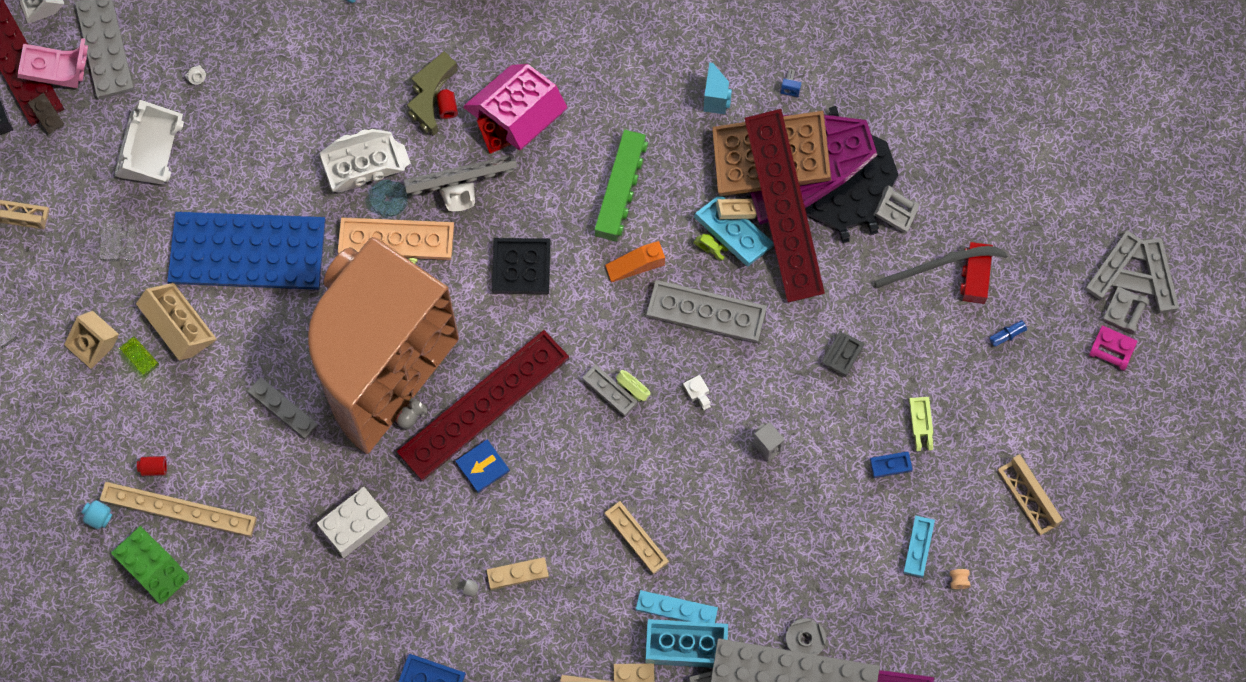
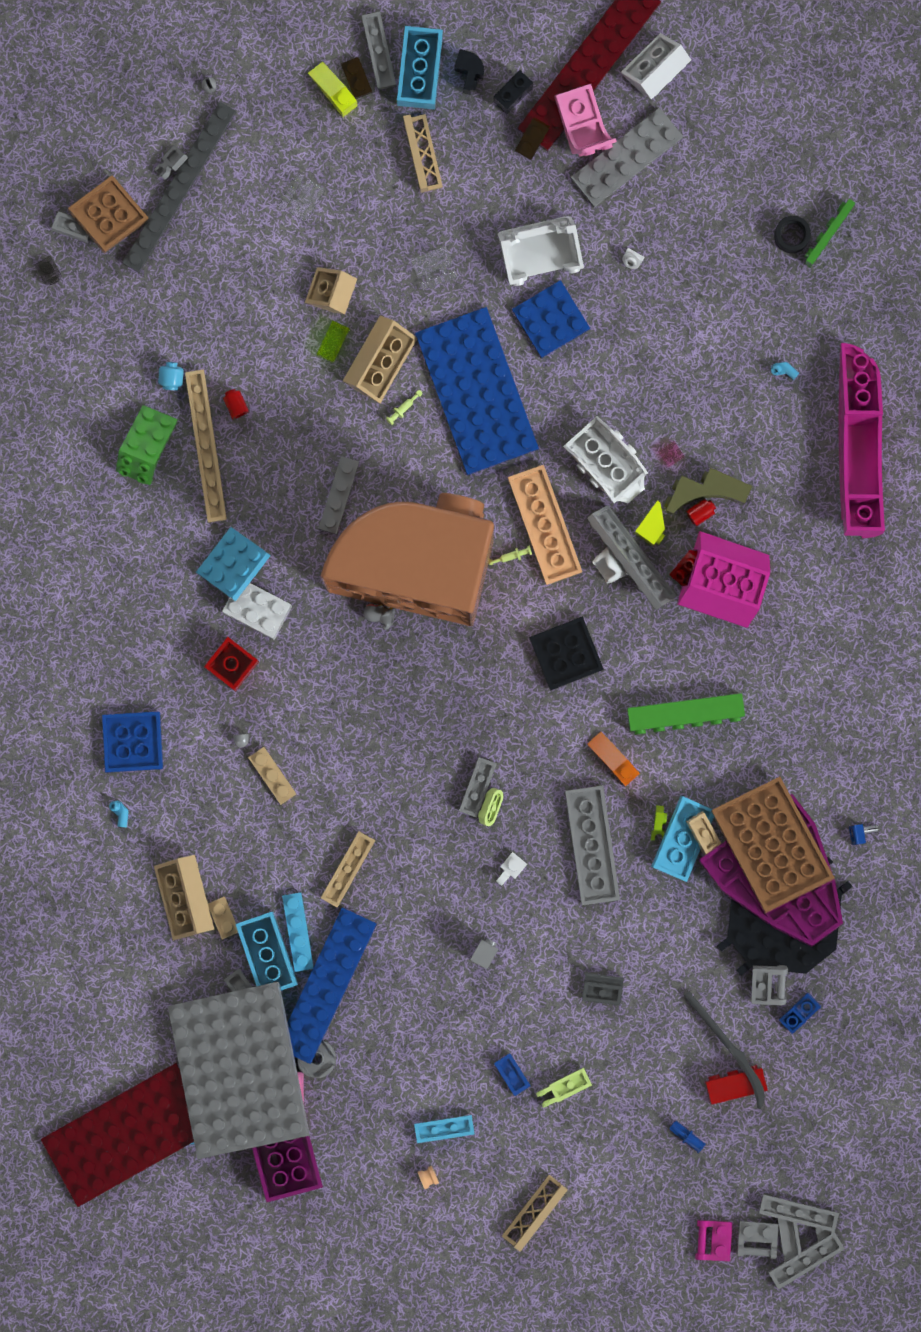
camera: 70 degrees right, 15 degrees up
(214, 163) = (551, 319): none -> blue plate
(232, 324) = (404, 407): none -> yellowish green piece
(300, 525) = (233, 563): none -> medium azure plate
(384, 110) = (671, 454): none -> clear pink tile
(390, 188) = (580, 489): clear light blue plate -> none
(394, 565) = (231, 664): none -> red brick
(440, 148) = (652, 526): none -> neon yellow slope
(482, 466) = (359, 701): blue tile -> none
(483, 405) = (416, 677): dark red plate -> none
(717, 91) = (818, 765): medium azure slope -> none
(736, 596) = (328, 983): none -> blue plate
(784, 205) = (721, 878): dark red plate -> none
(931, 195) = (800, 1013): none -> blue slope

